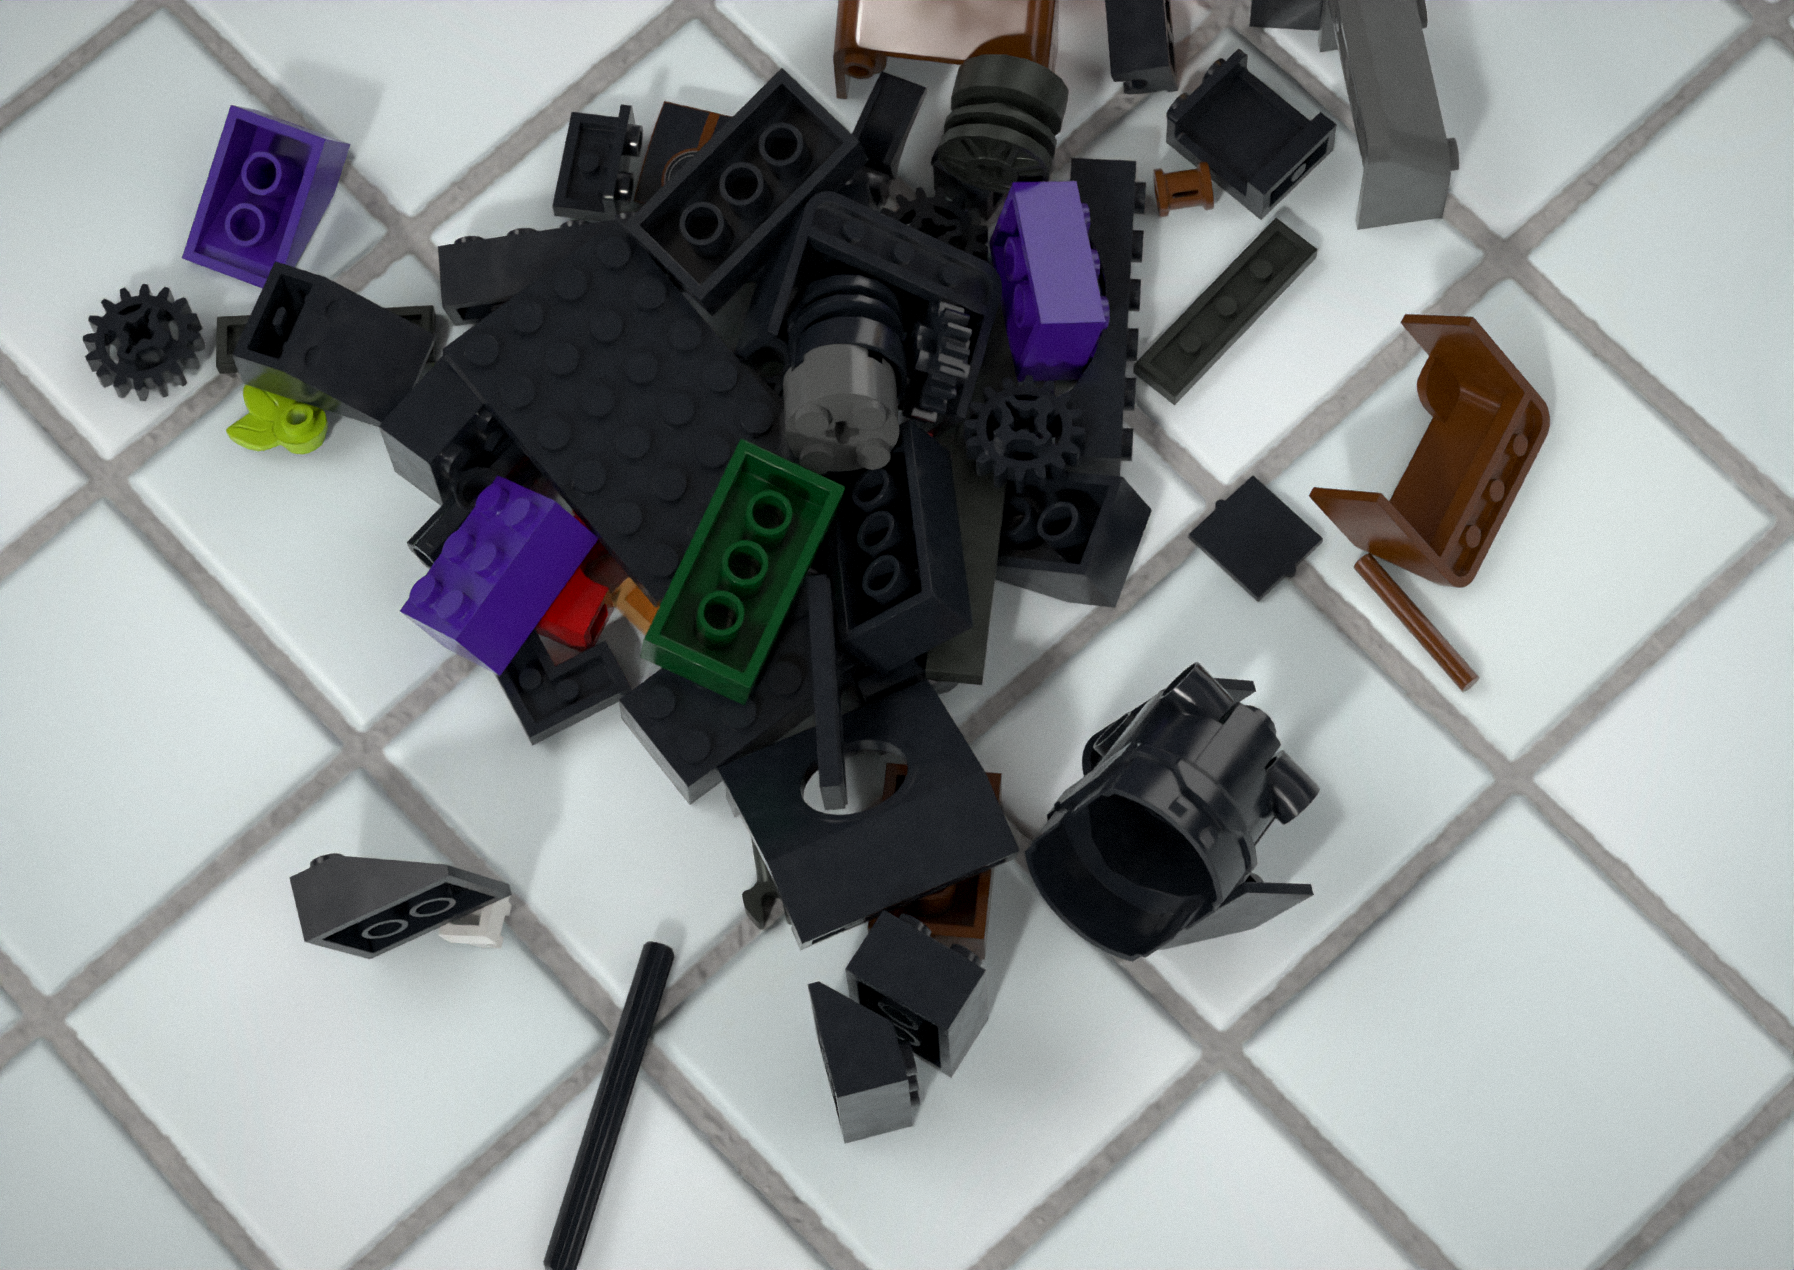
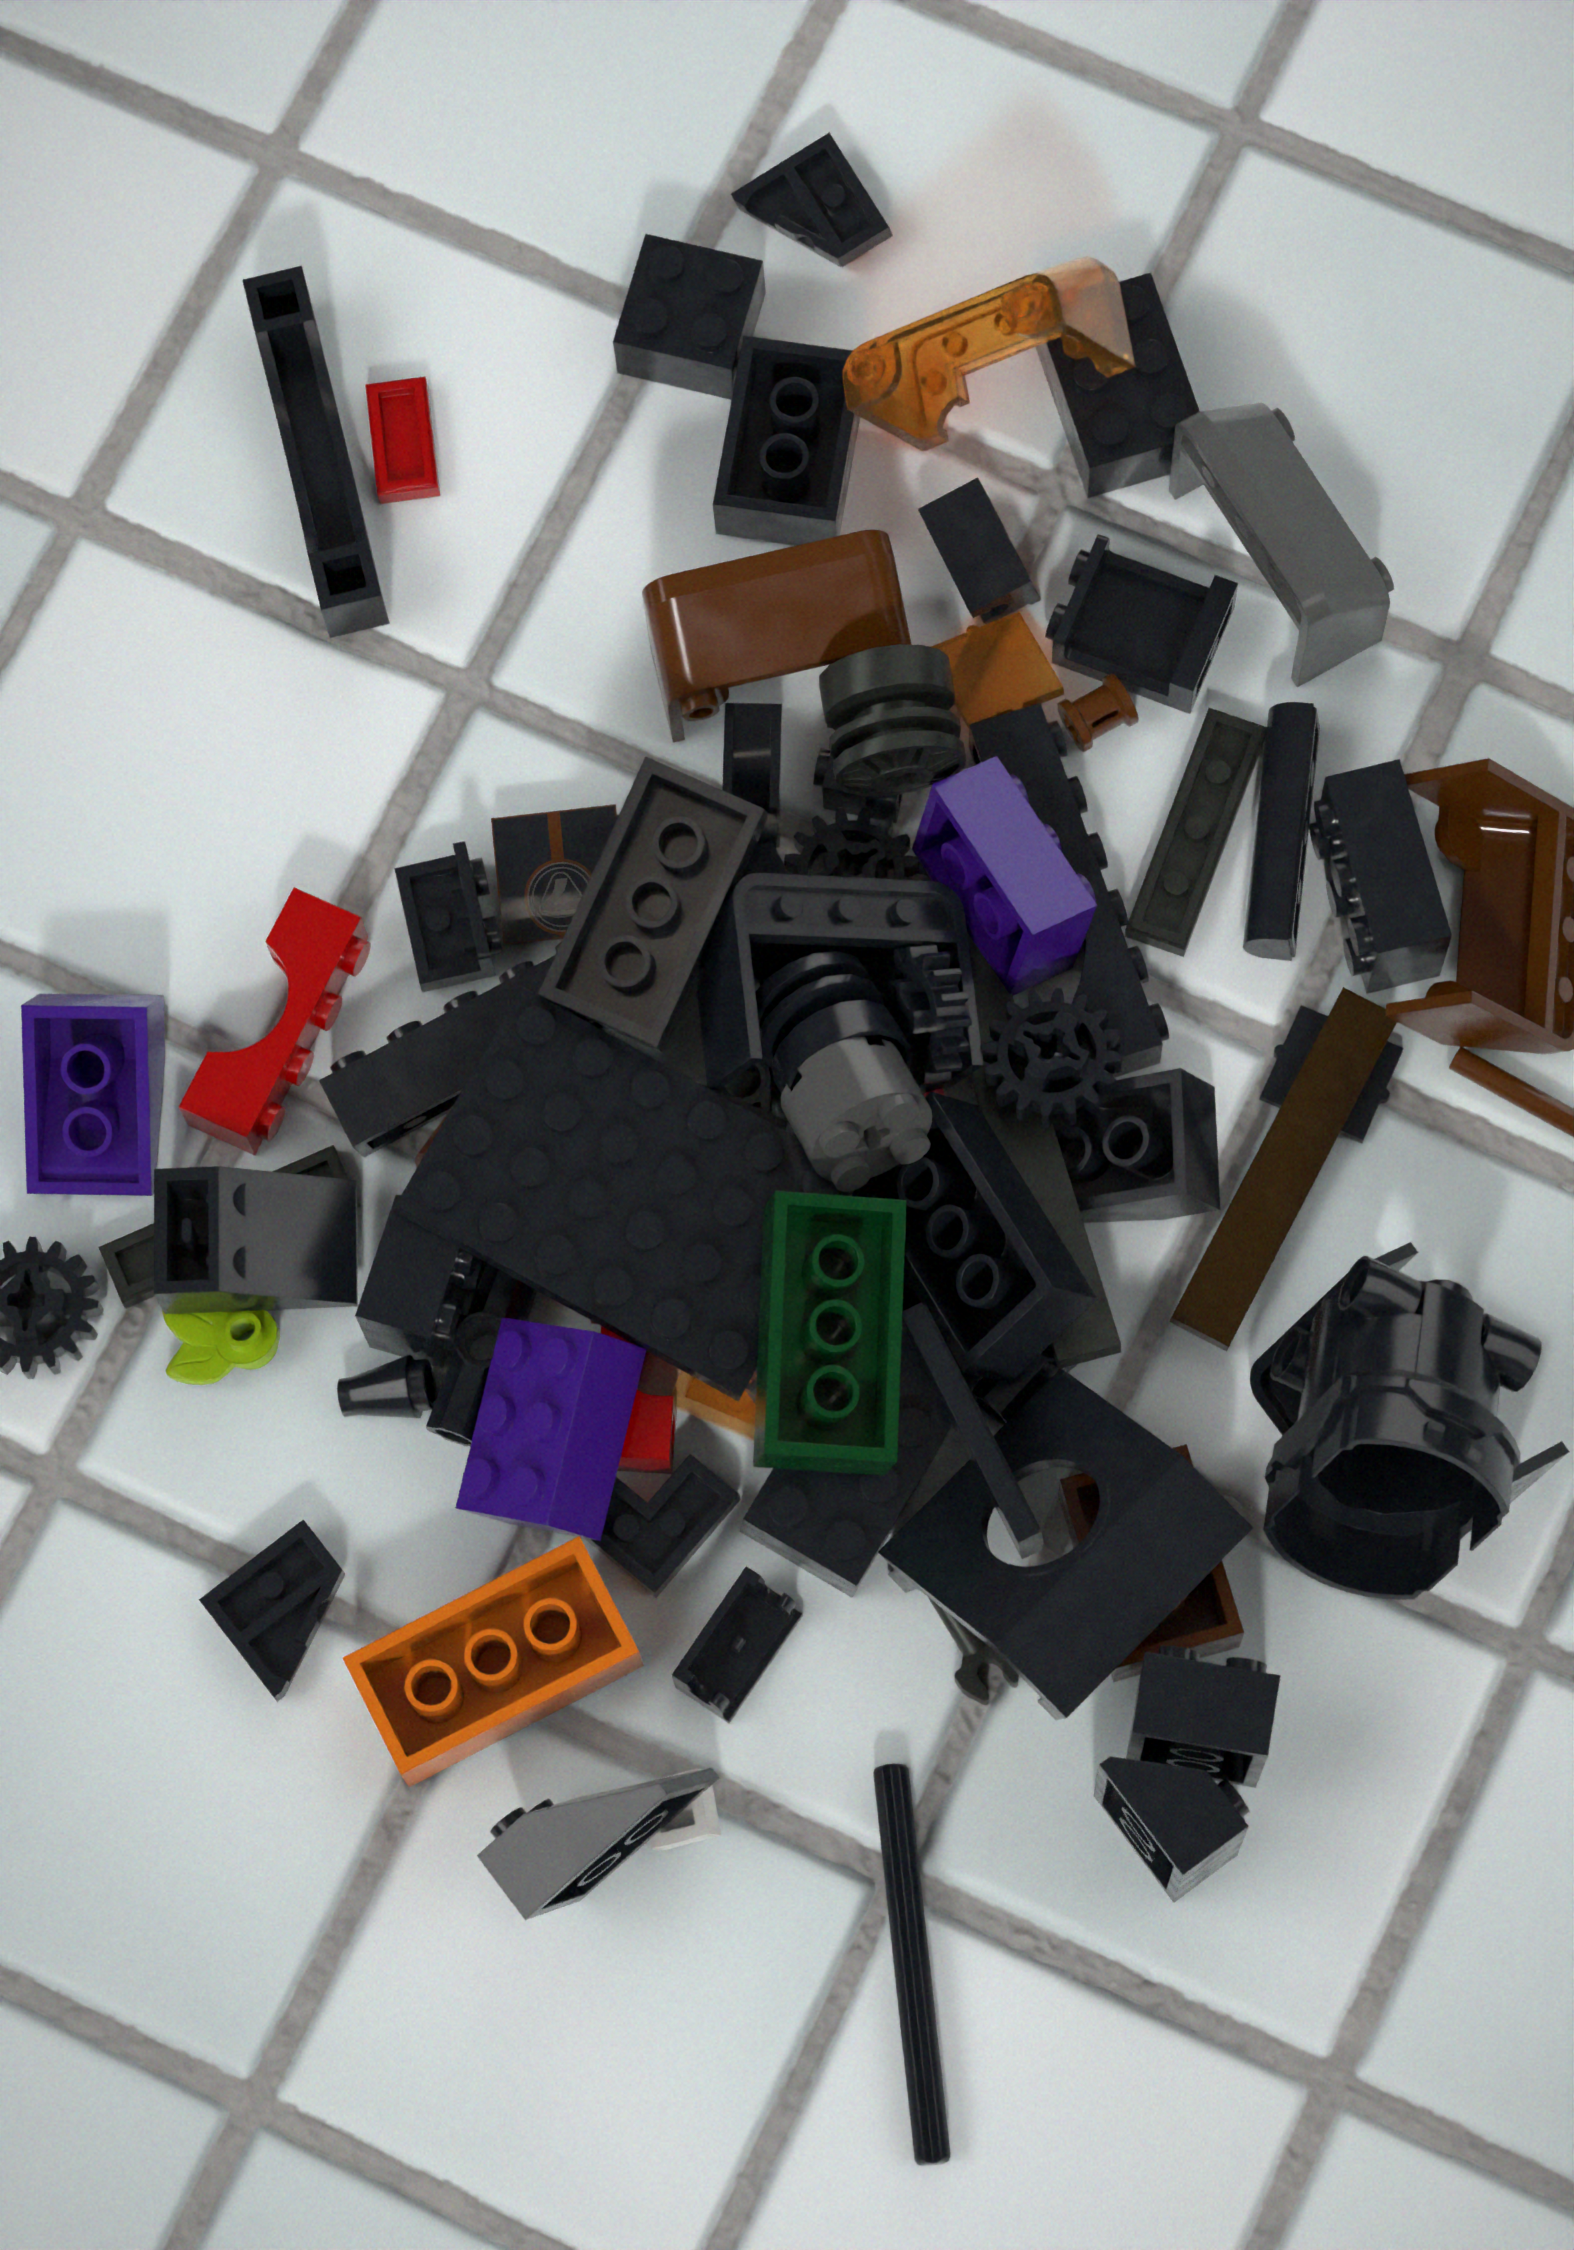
camera: 20 degrees left, 5 degrees up
(232, 638) = (277, 1605): none -> black wing
(377, 741) = (493, 1661): none -> orange brick
(381, 237) = (243, 1090): none -> red arch
(392, 506) = (391, 1390): none -> black cone
(577, 803) = (736, 1645): none -> black hinge
(1115, 127) = (999, 669): none -> clear orange piece
(1181, 598) = (1284, 1170): none -> dark brown tile
(1294, 334) = (1282, 831): none -> black brick
(1353, 391) = (1380, 877): none -> black brick

